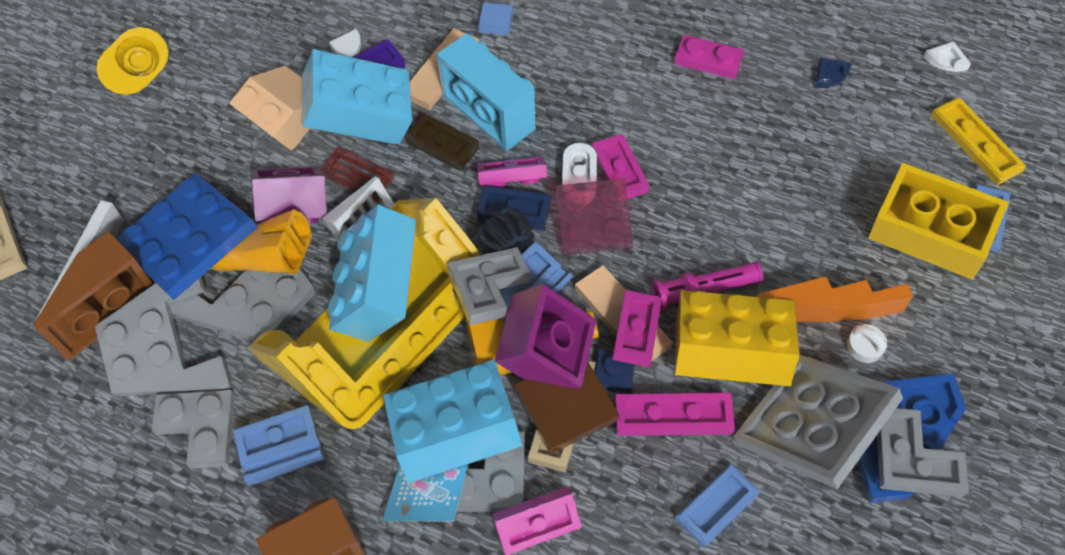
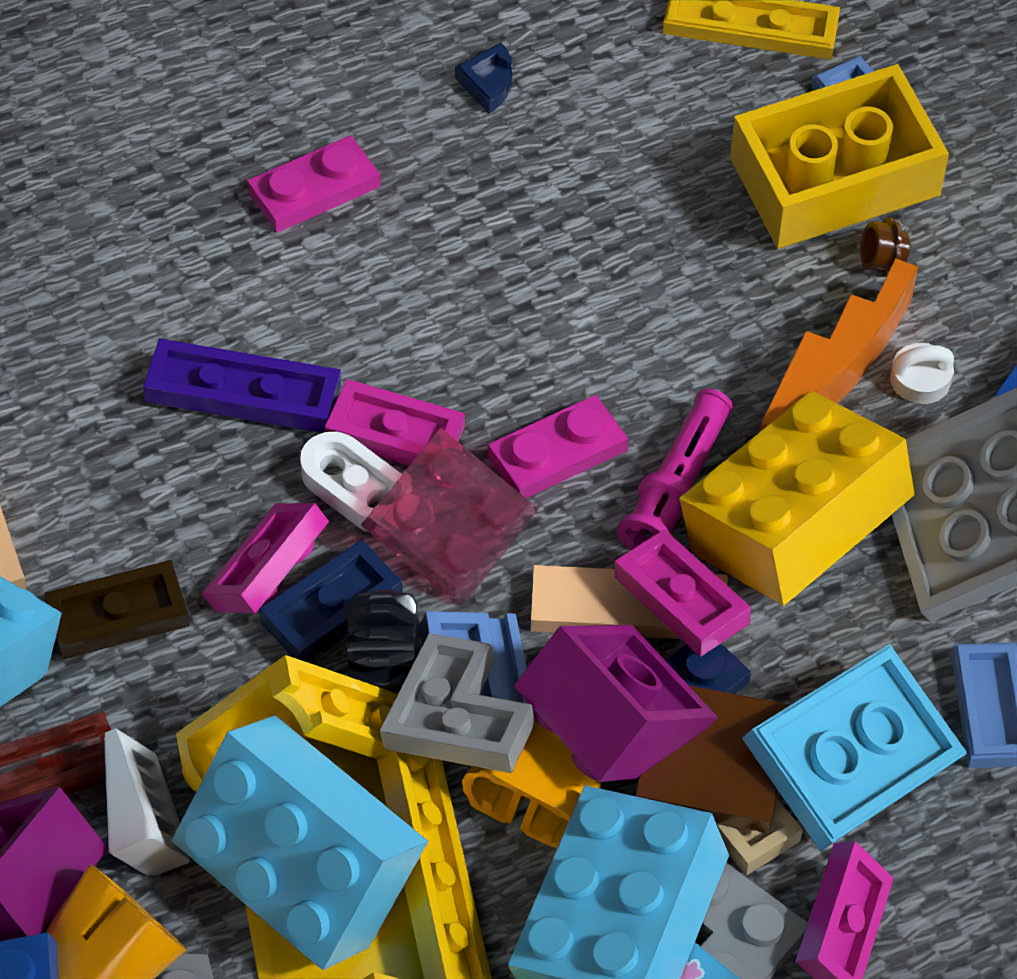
camera: 55 degrees left, 5 degrees down
(487, 91) = (107, 480): medium azure brick -> none
(585, 103) = (242, 385): none -> dark purple plate
(627, 458) = (854, 746): none -> medium azure tile
(673, 232) = (558, 447): none -> dark pink plate
(674, 414) = (845, 633): dark pink plate -> none
(917, 277) = (882, 244): none -> reddish brown plate

